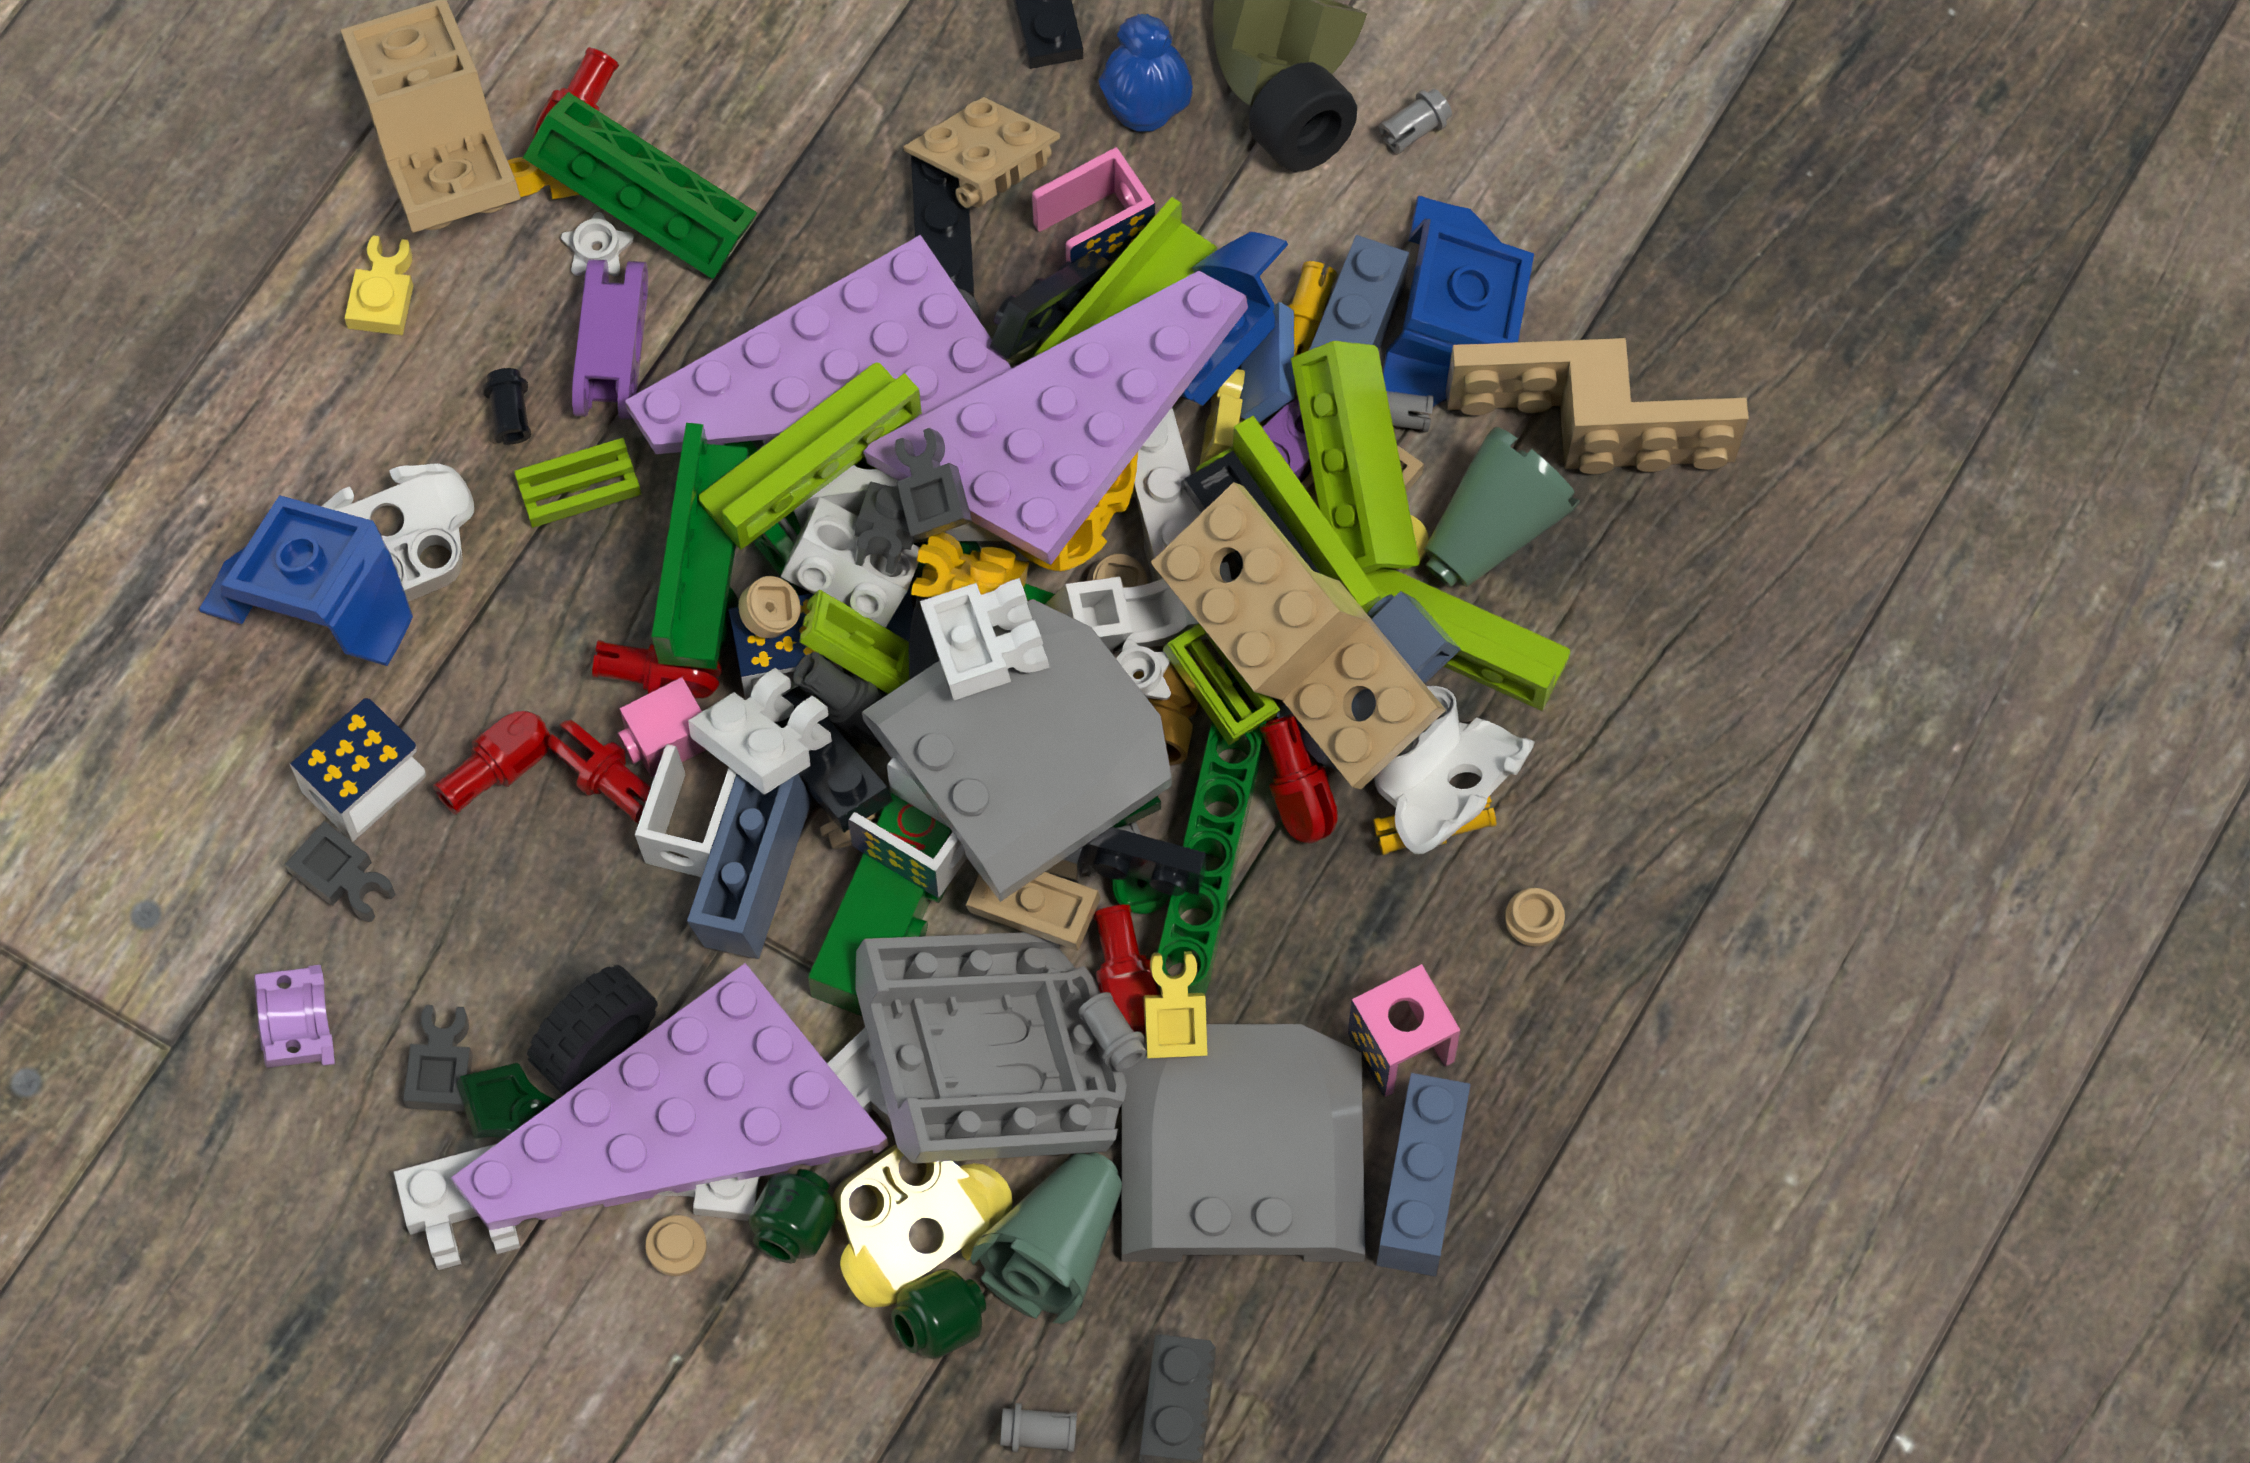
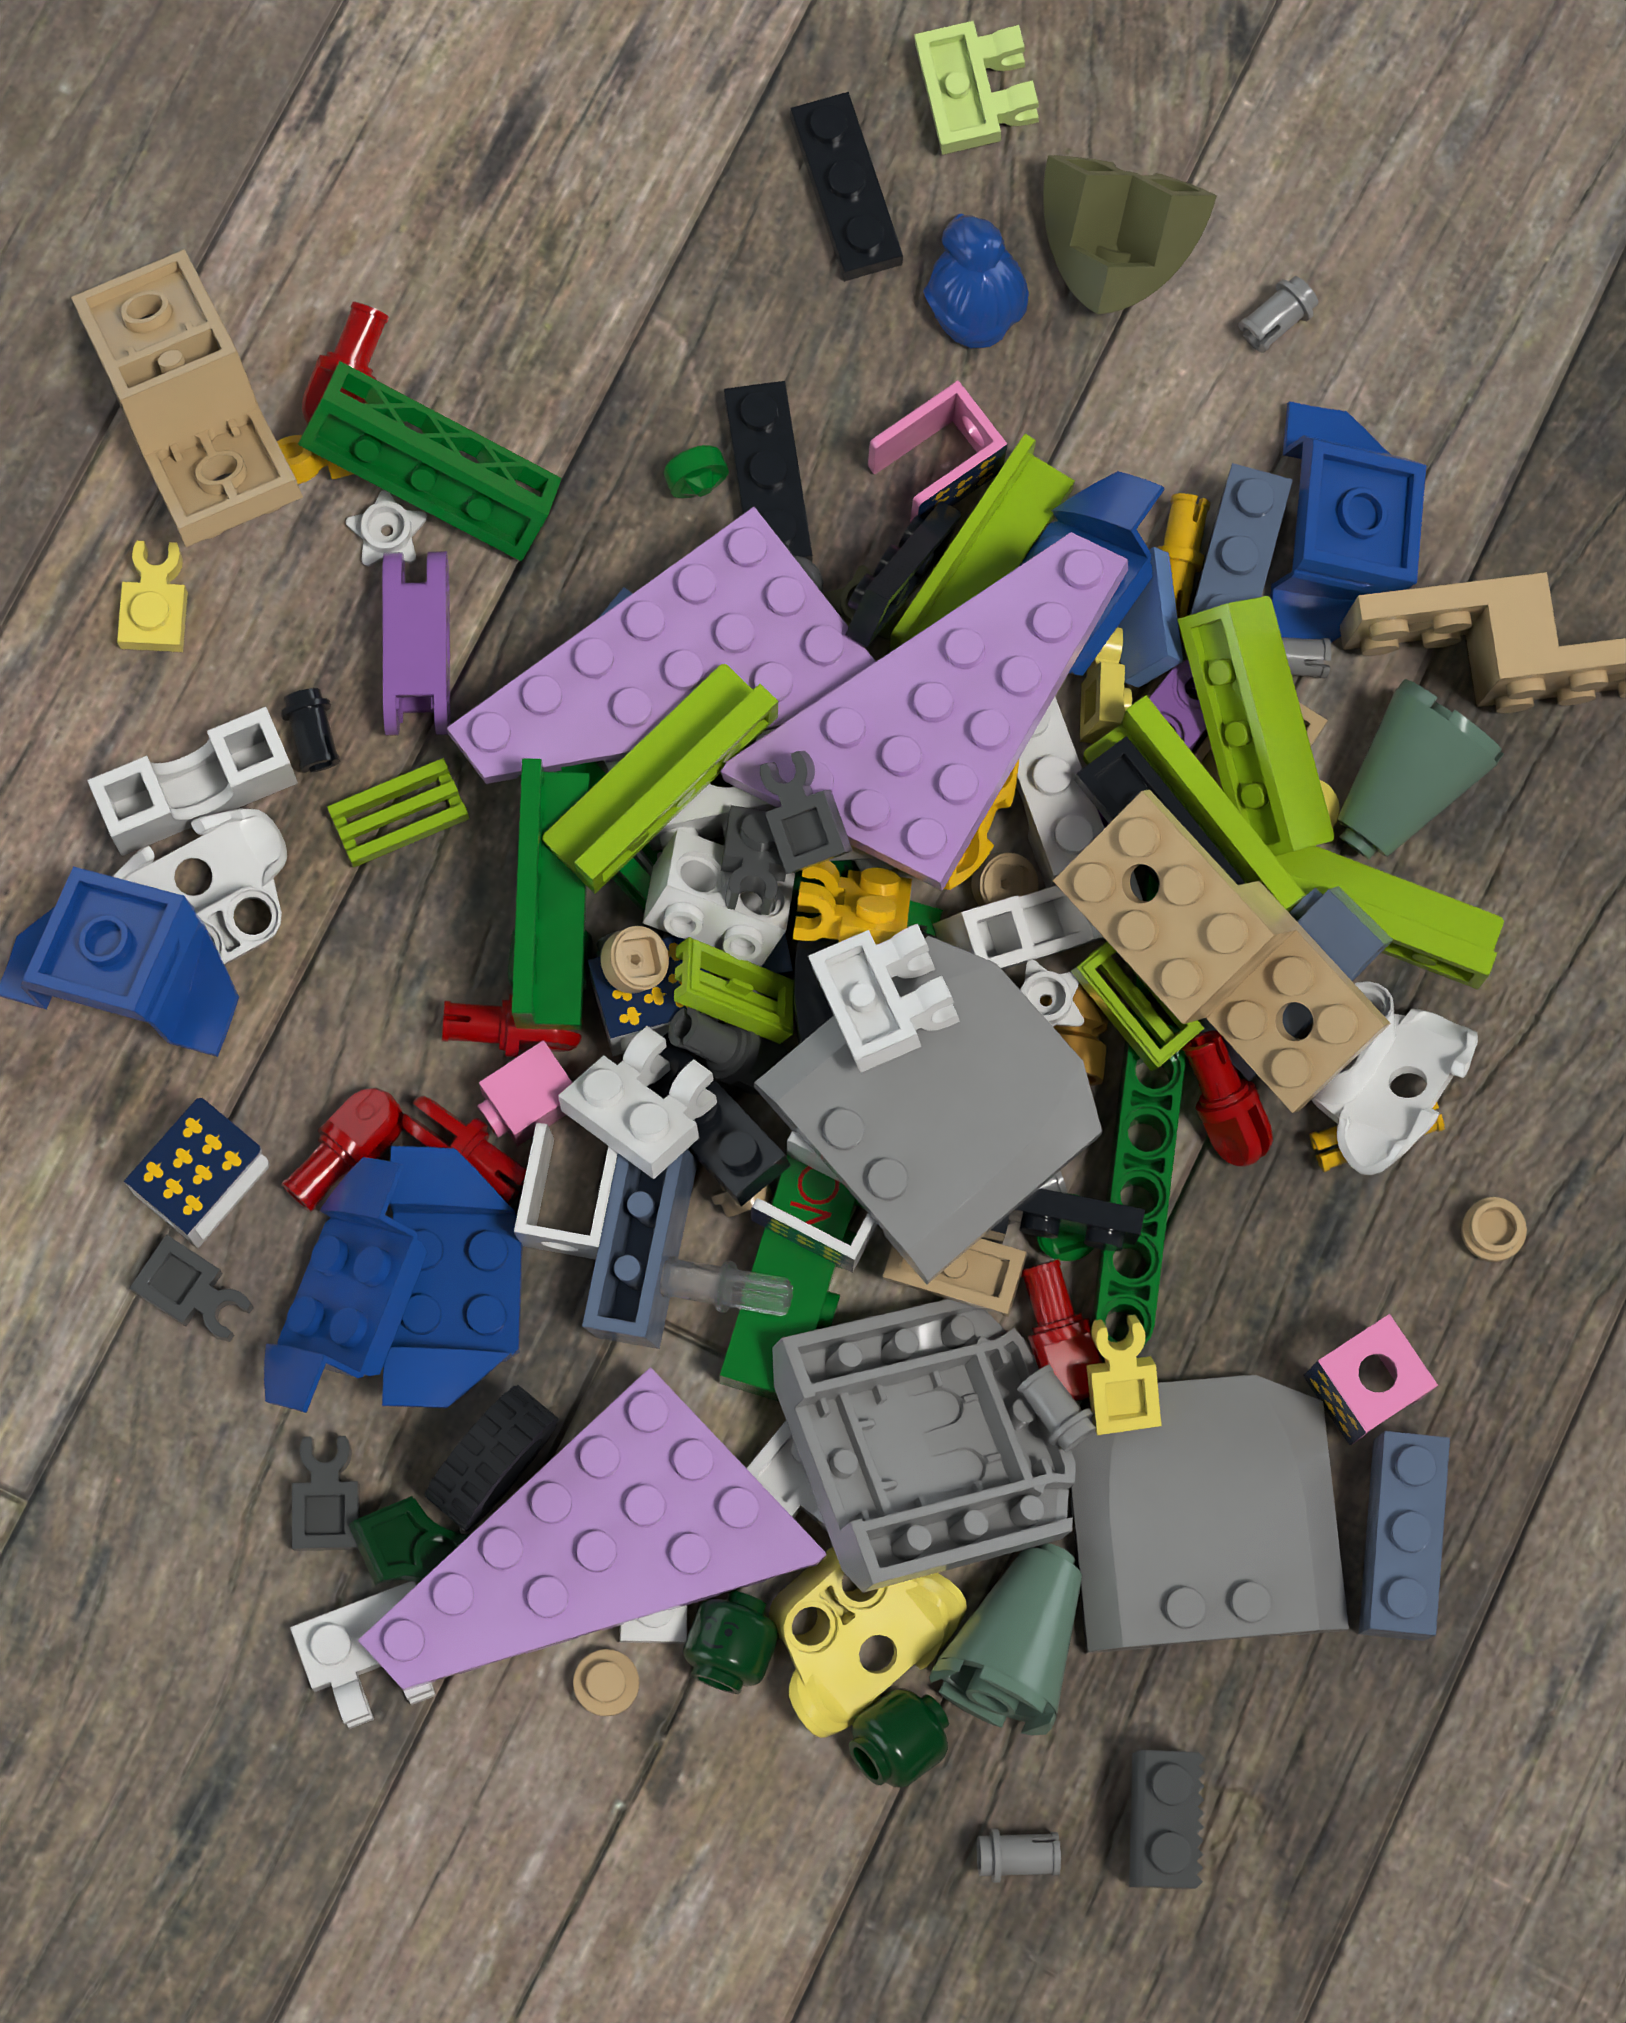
camera: 10 degrees left, 10 degrees up
(293, 1017) = (161, 1466): lavender piece -> none
(435, 429) = (157, 800): none -> white arch
(487, 870) = (350, 1290): none -> blue piece
(577, 876) = (470, 1285): none -> blue piece
(821, 899) = (725, 1286): none -> clear axle
(877, 213) = (695, 471): none -> green tile
(985, 149) = (806, 385): tan hinge -> none
(1302, 116) = (1156, 322): black tyre -> none

